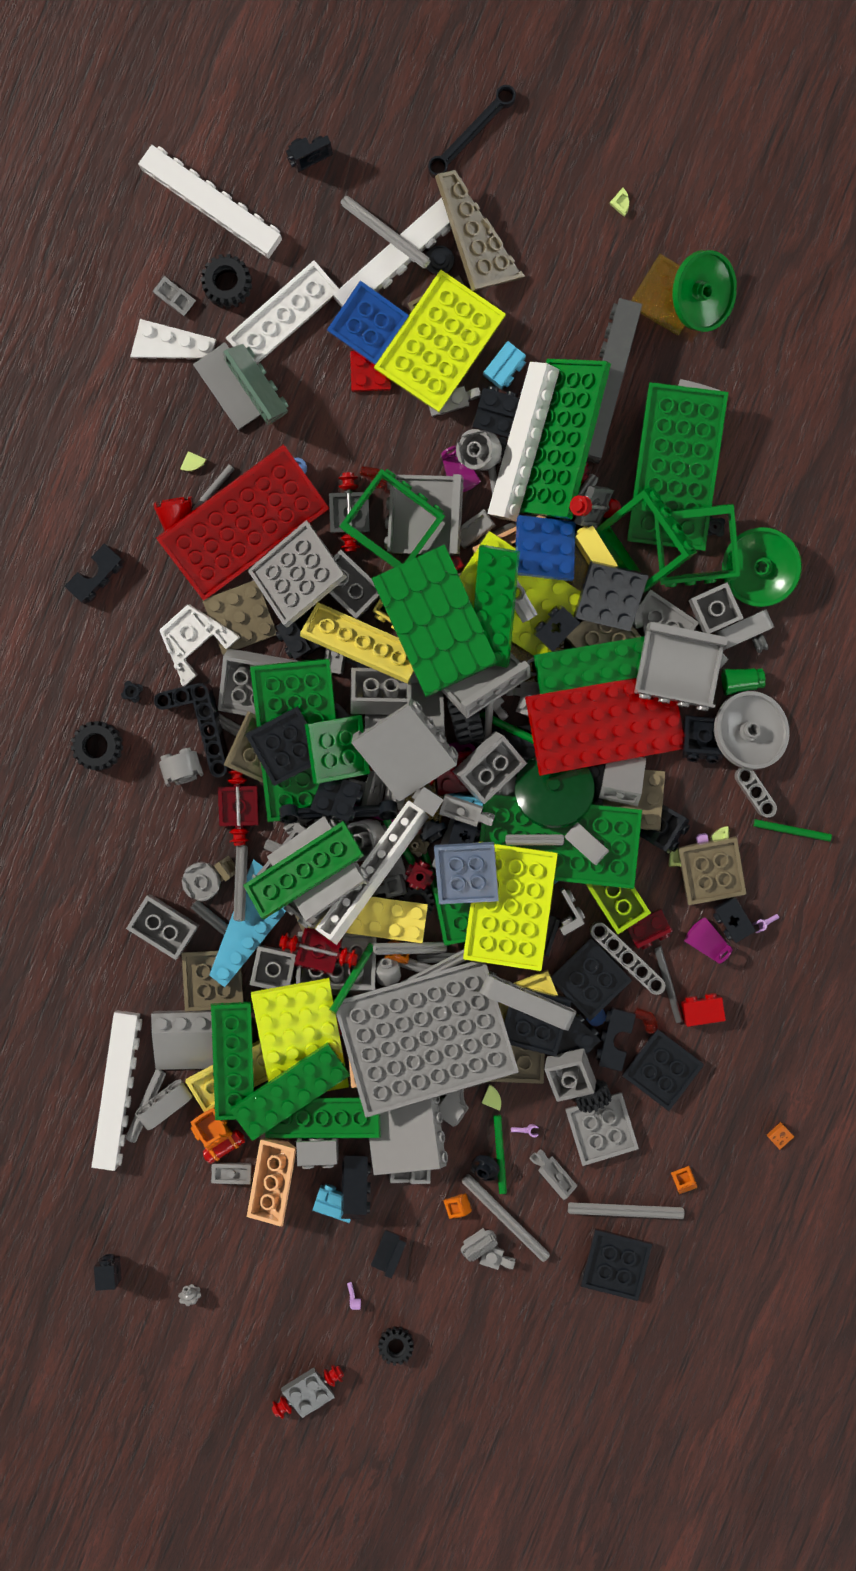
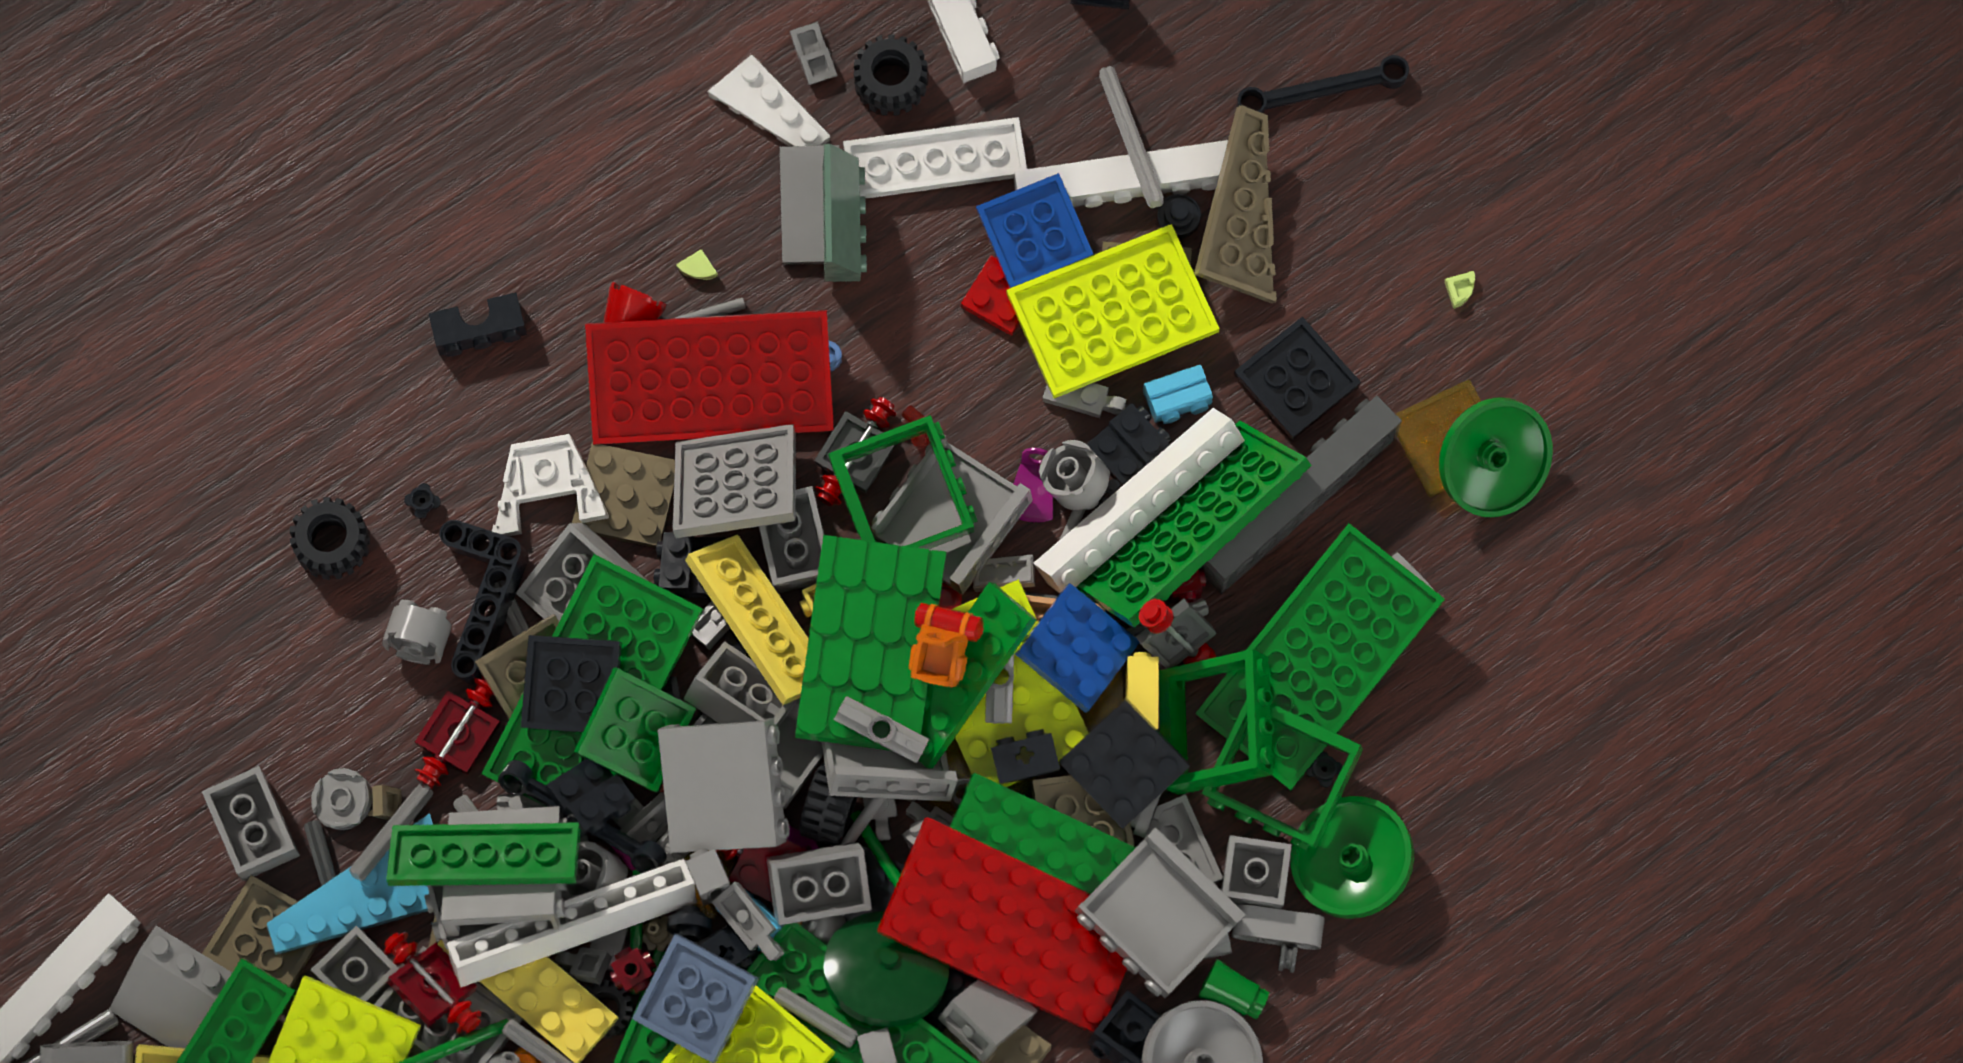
camera: 25 degrees right, 15 degrees down
(459, 666) = (861, 720): none -> light grey piece
(476, 597) = (942, 644): none -> orange piece
(564, 313) = (1297, 378): none -> black plate

